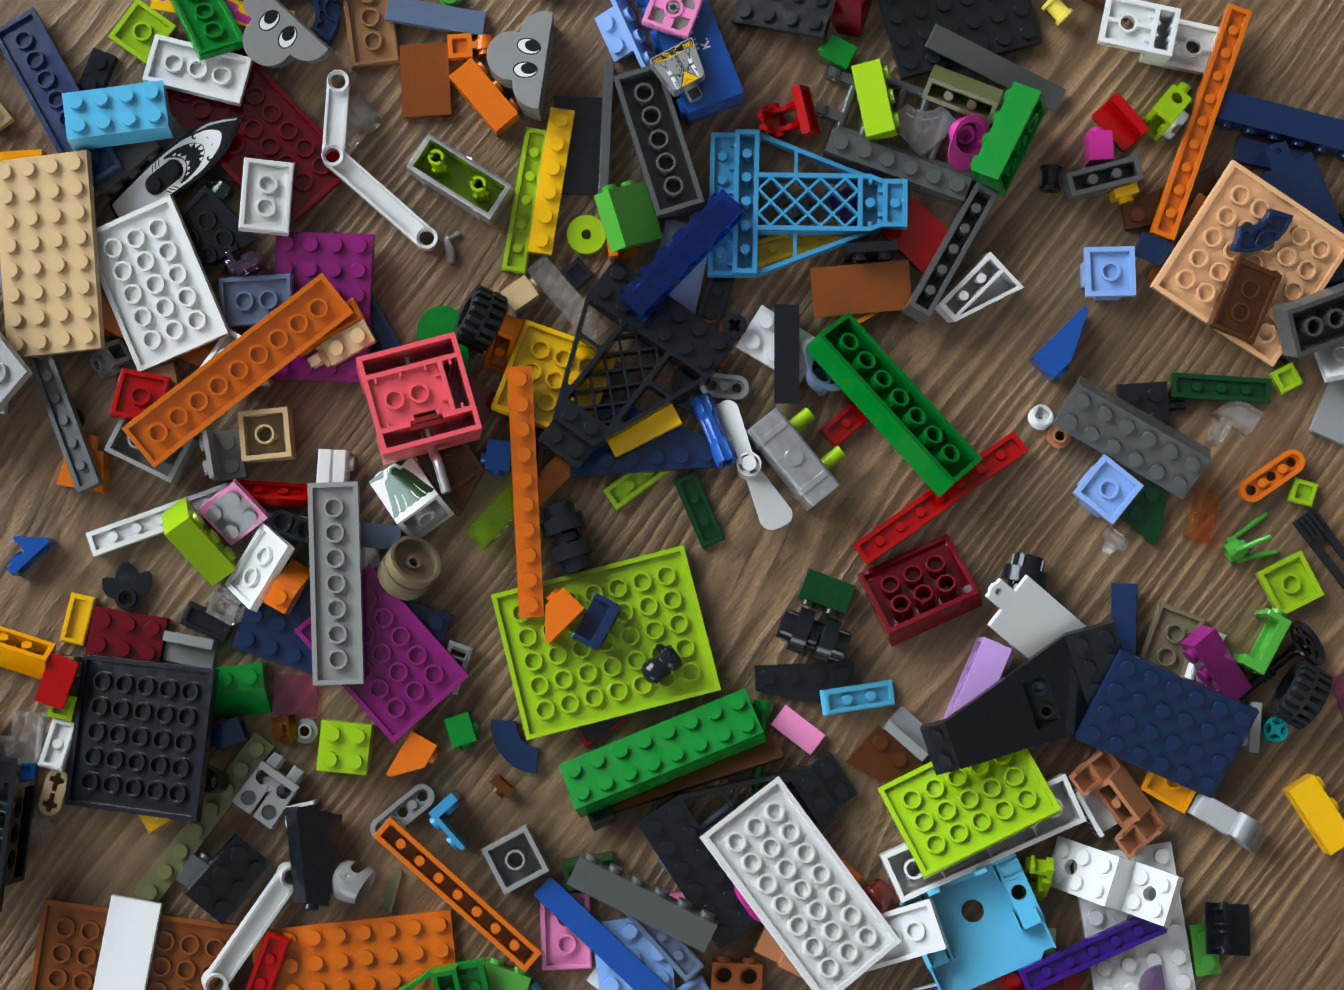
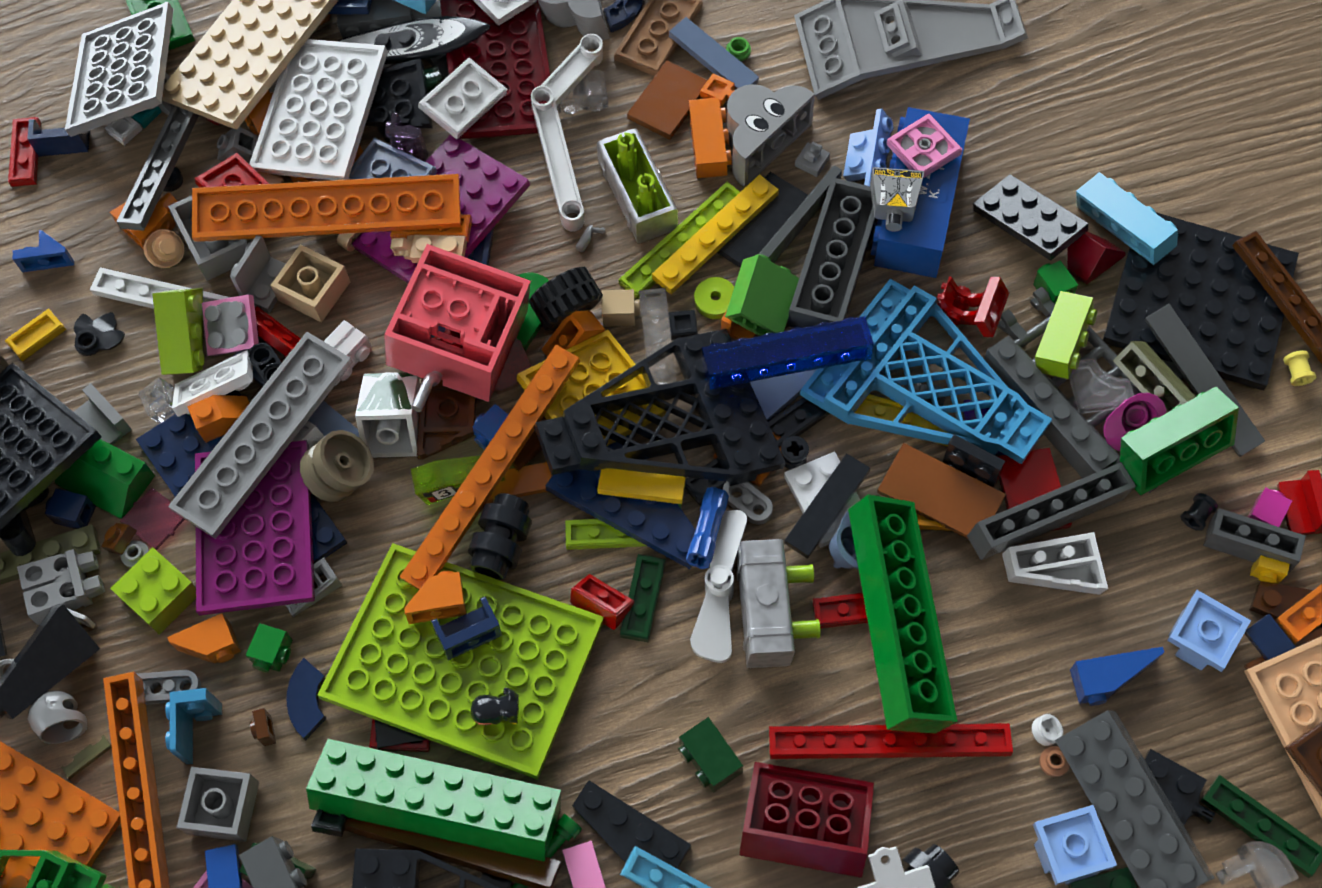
camera: 40 degrees right, 20 degrees down
(123, 483) = (164, 249): none -> light nougat plate
(126, 635) = (61, 371): dark red plate -> none
(200, 621) = (132, 407): black tile -> none
(578, 61) = (812, 159): none -> light grey tile
(672, 533) = (602, 600): none -> red slope
(824, 639) = (659, 775): black piece -> none

